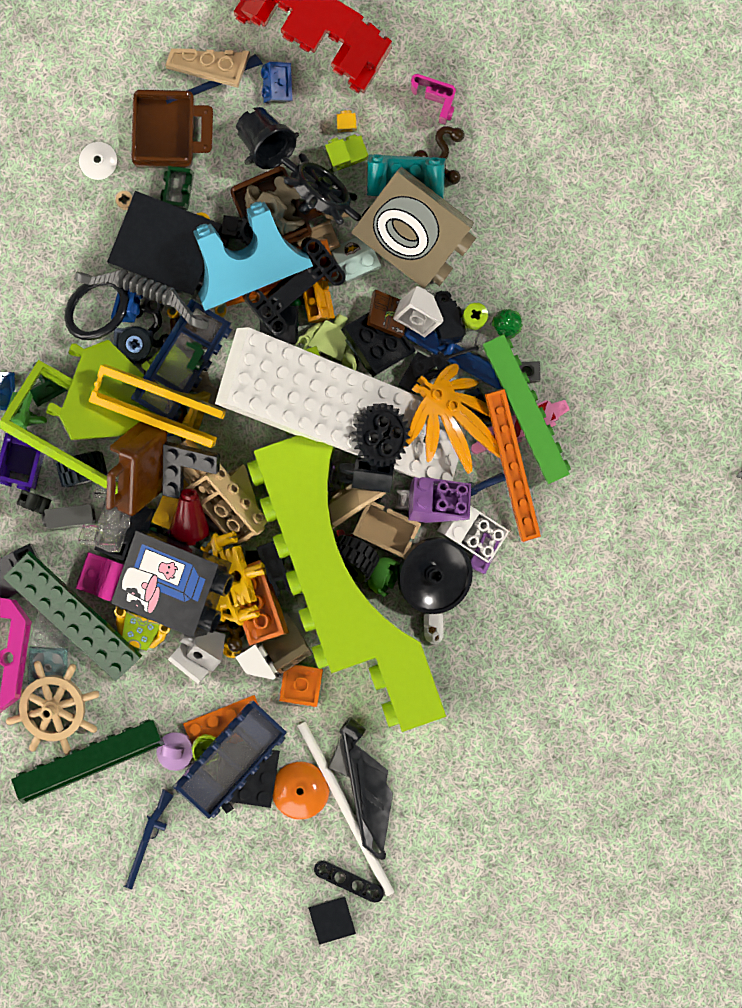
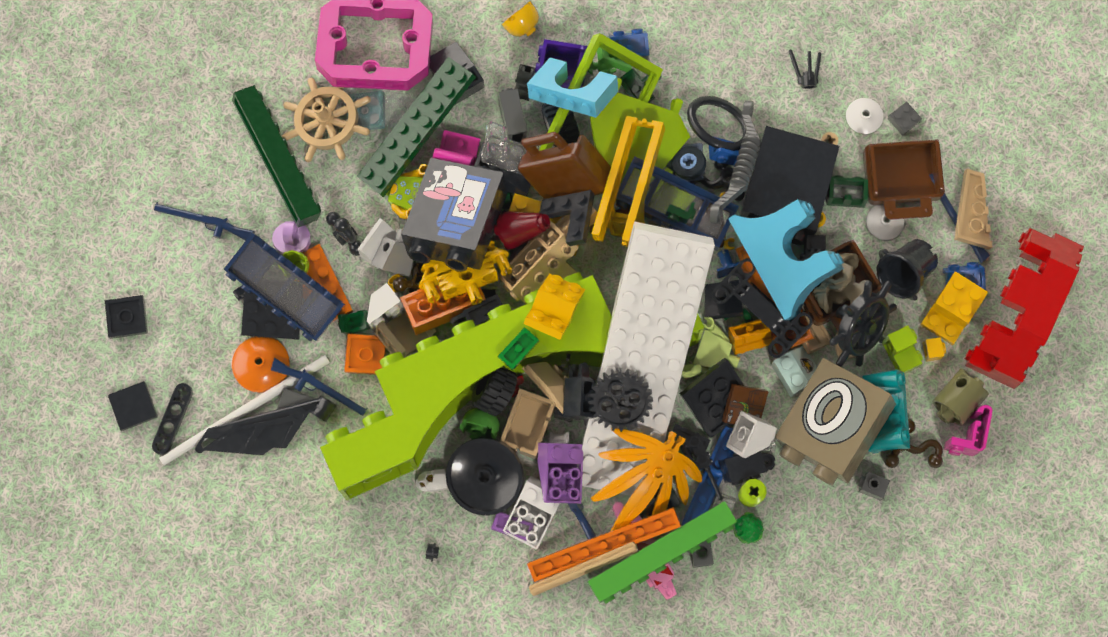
camera: 85 degrees right, 10 degrees down
(55, 212) = (809, 79): none -> black plant
(73, 440) = (586, 100): none -> medium azure arch
(105, 120) = (904, 118): none -> dark grey piece
(175, 697) = (344, 232): none -> black piece
(217, 160) = (879, 228): none -> white dish
(241, 922) = (126, 317): none -> black plate
(242, 315) = (727, 264): none -> blue bracket
(267, 694) = (353, 322): none -> dark green bracket
(285, 490) = (554, 306): none -> yellow bracket
(308, 97) = (954, 308): none -> yellow bracket
(320, 747) = (304, 377): none -> dark blue piece
(323, 530) = (518, 348): none -> green plate
(399, 103) = (960, 398): none -> olive cylinder
(476, 198) = (873, 485): none -> dark grey brick
(502, 633) = (432, 552): none -> black plate
(534, 487) = (583, 568): none -> tan axle

